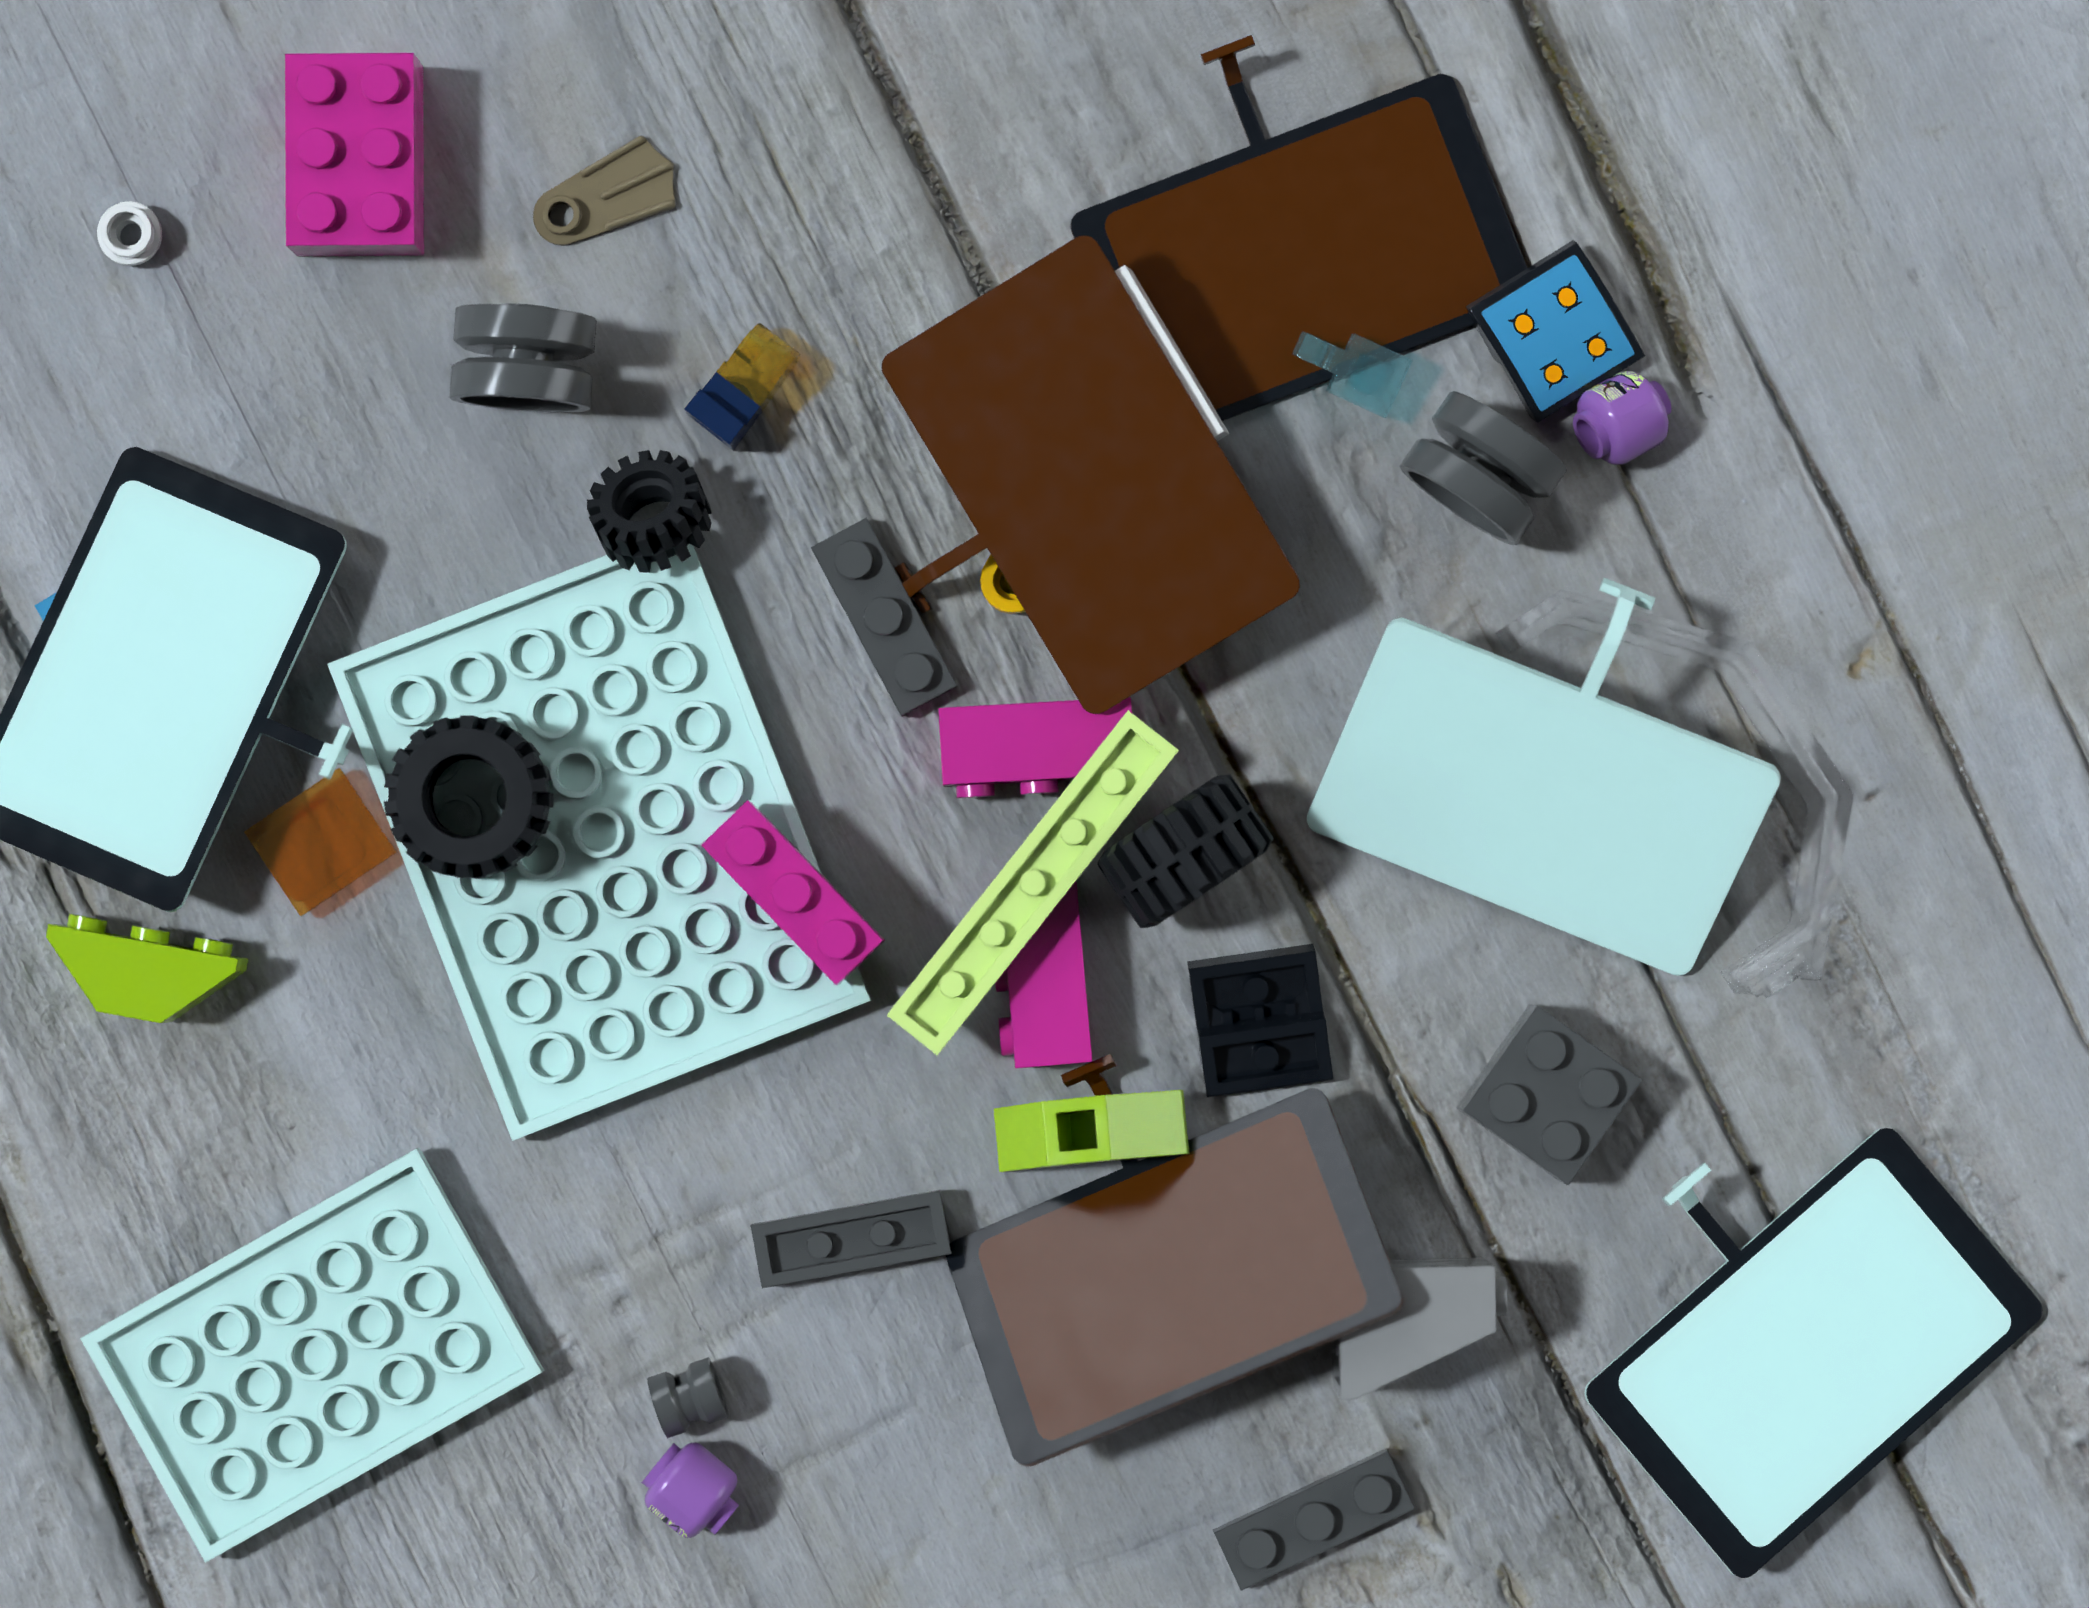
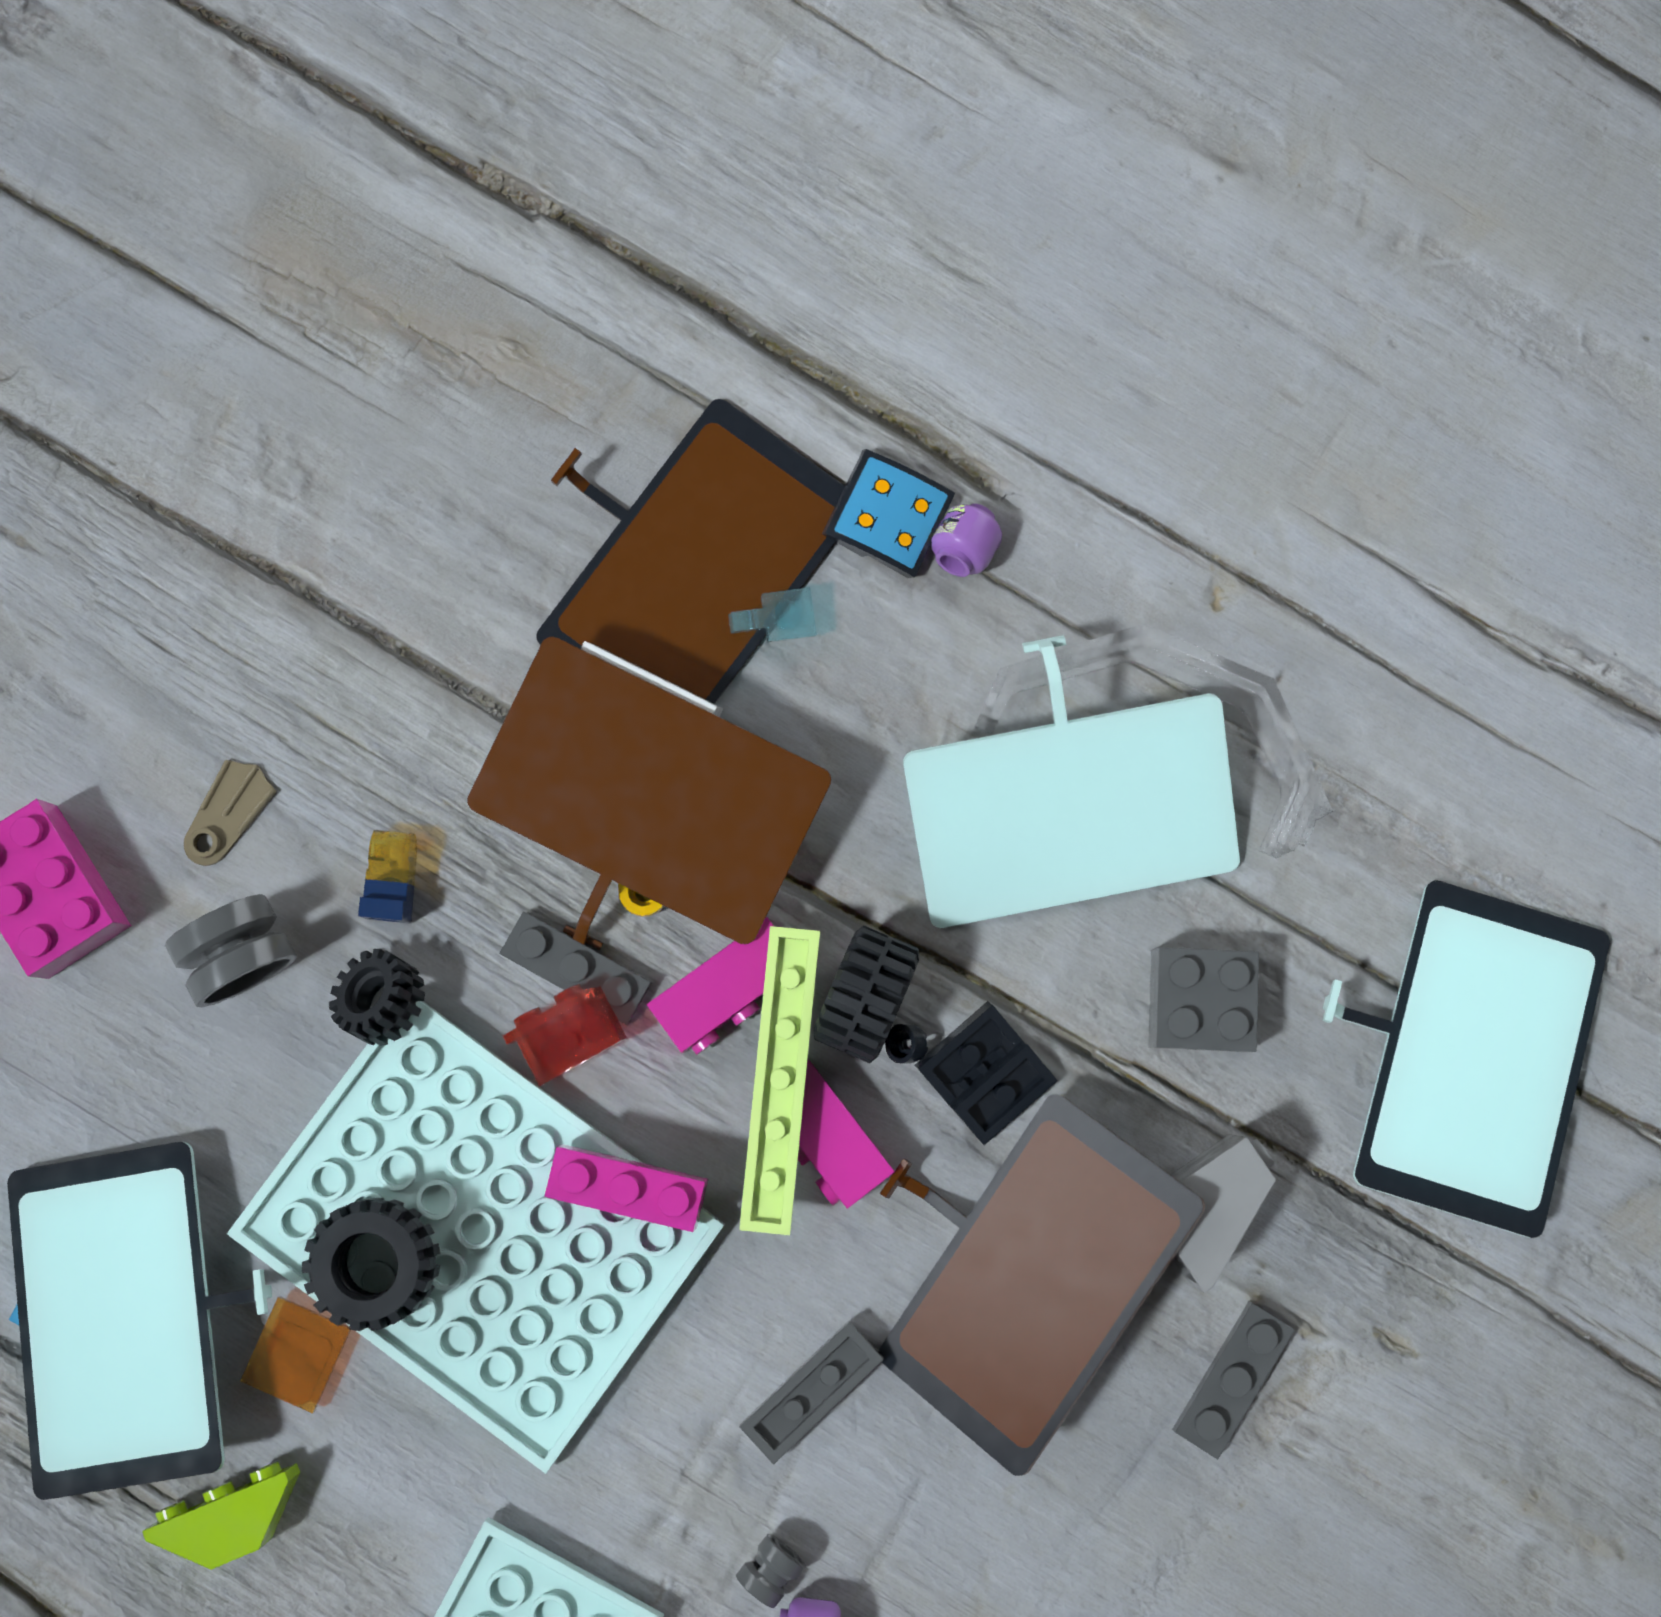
camera: 25 degrees left, 5 degrees down
(831, 684) = (566, 1033): none -> clear red bracket
(1091, 1130) = (923, 1217): lime slope -> none
(1201, 920) = (906, 1032): none -> black hinge
(1483, 467) = (899, 624): dark grey wheel -> none

